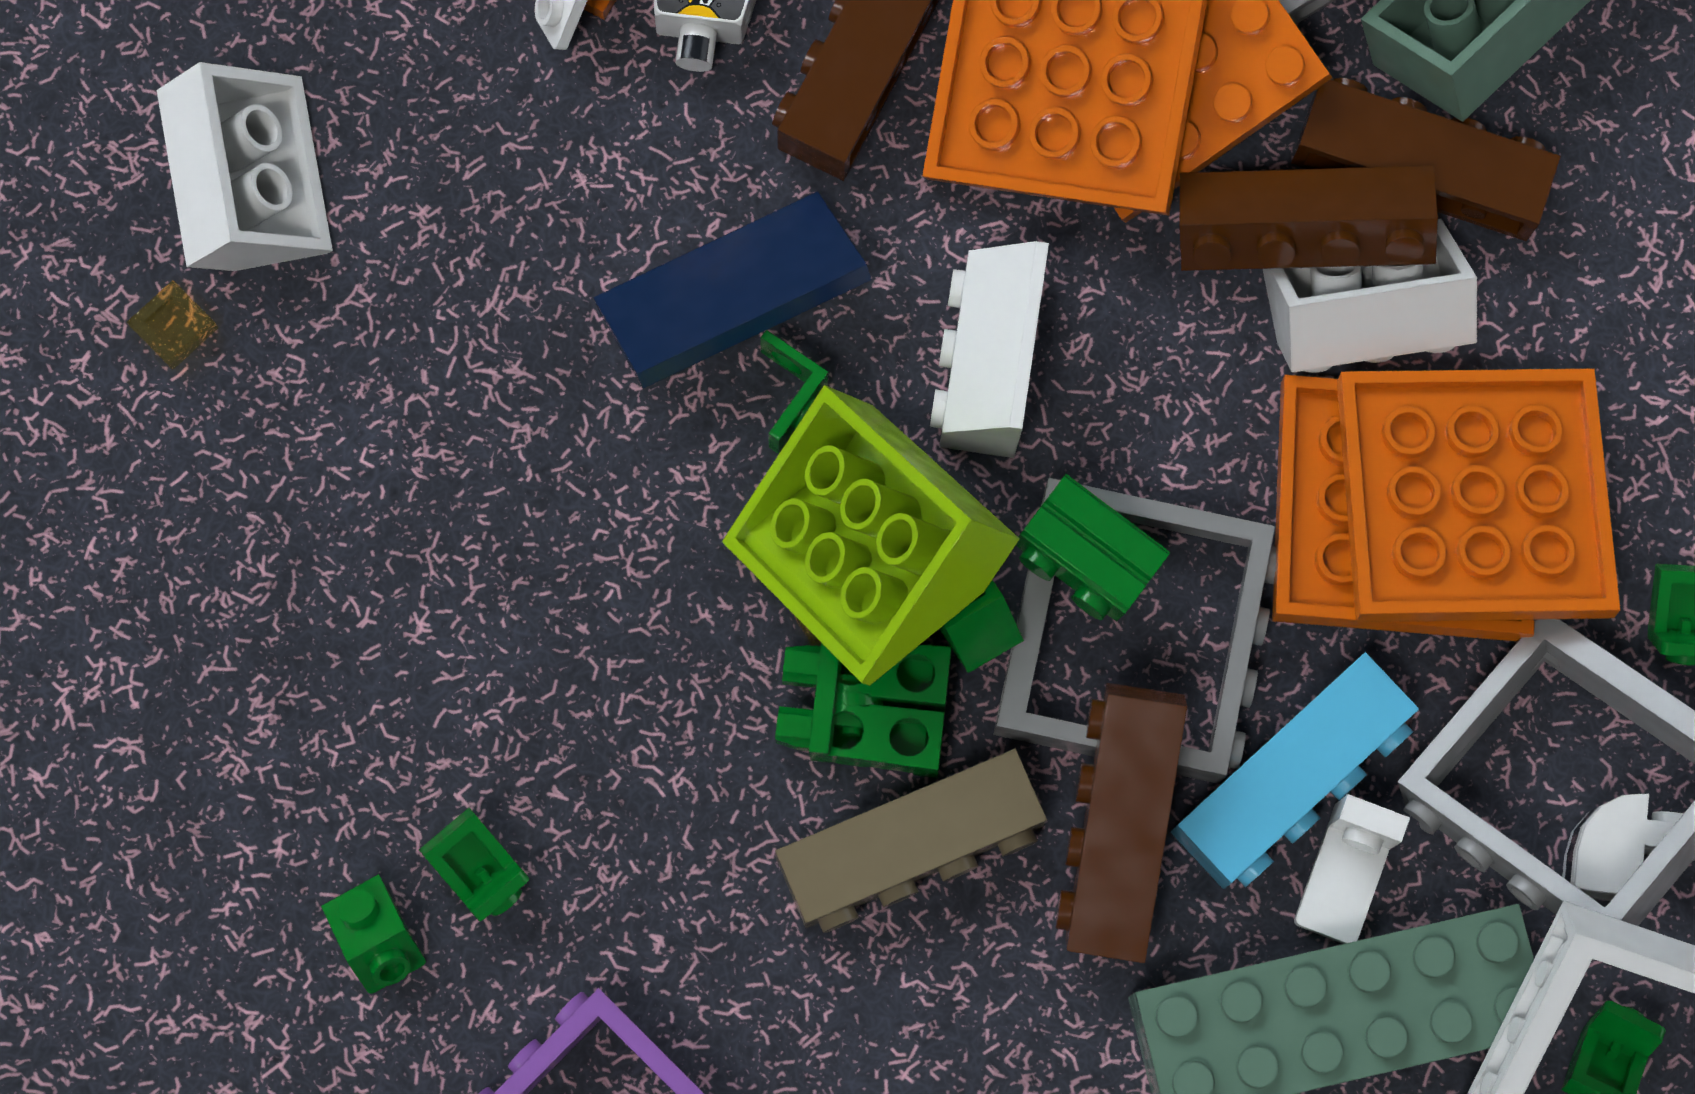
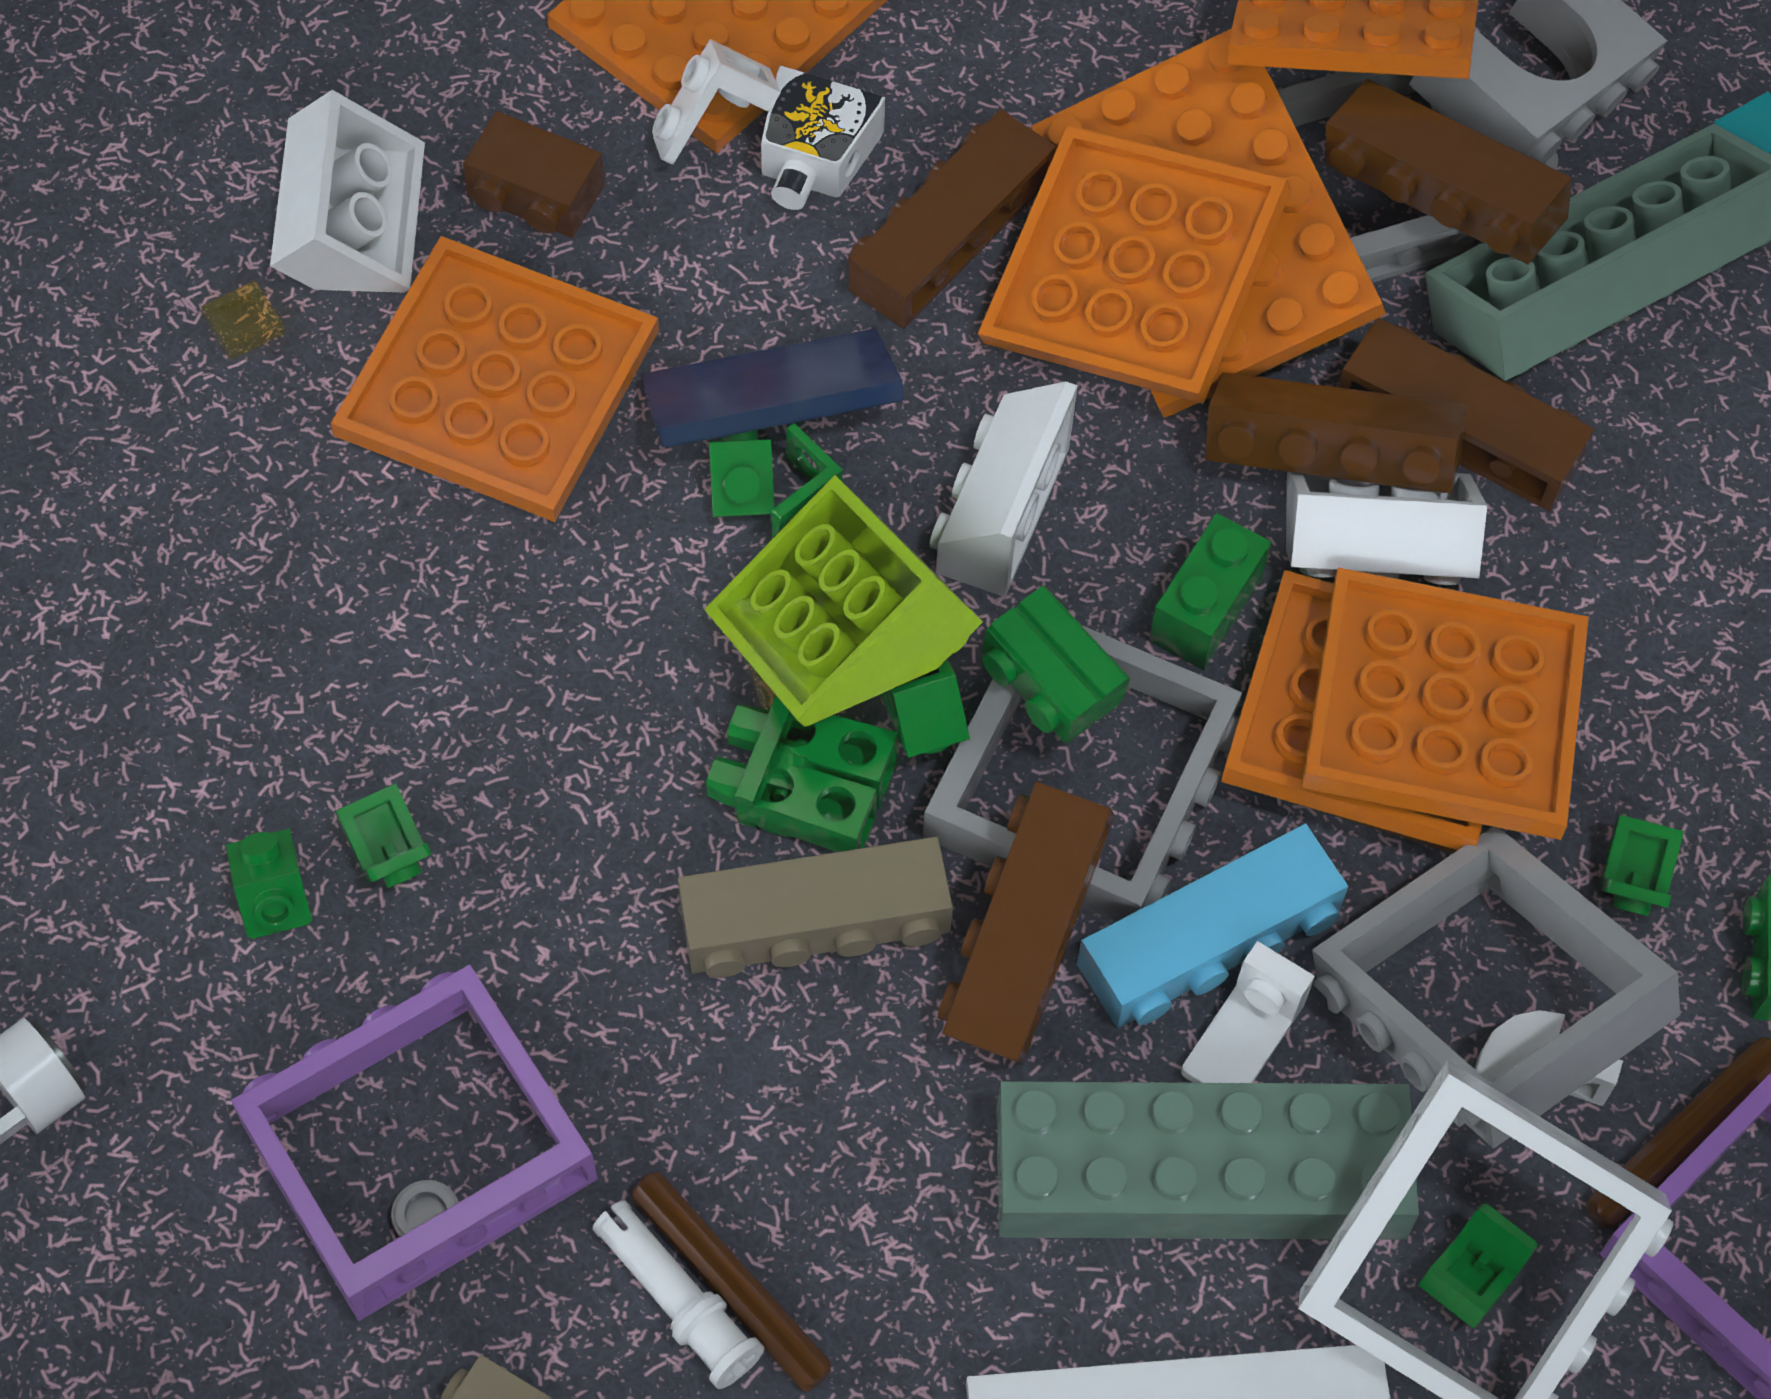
camera: 15 degrees right, 15 degrees down
(426, 97) = (533, 175): none -> reddish brown brick
(449, 335) = (496, 378): none -> orange plate
(726, 393) = (741, 475): none -> green bracket
(1217, 416) = (1209, 591): none -> green brick

